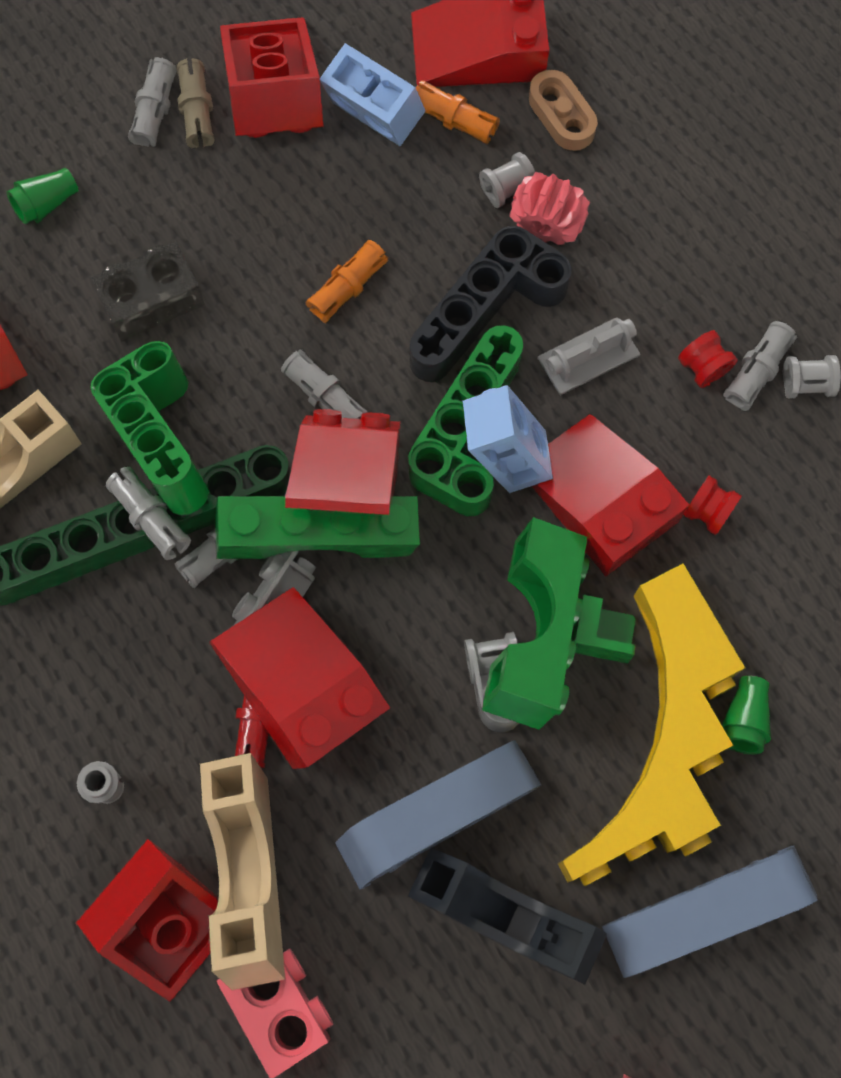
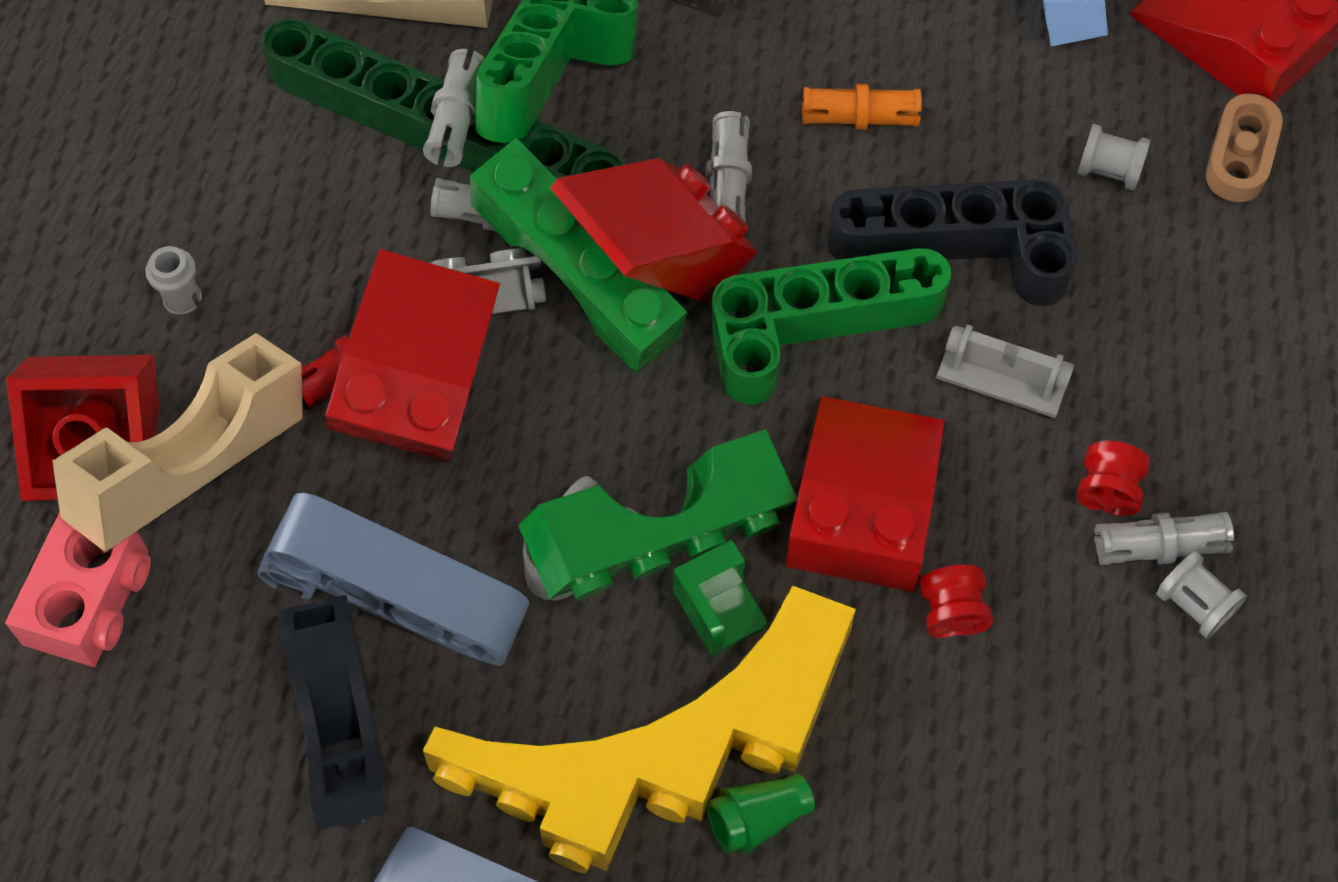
camera: 50 degrees right, 10 degrees down
(457, 113) = (1137, 61): orange pin -> none
(507, 439) = (824, 346): light blue brick -> none
(550, 208) = (1116, 208): coral gear -> none

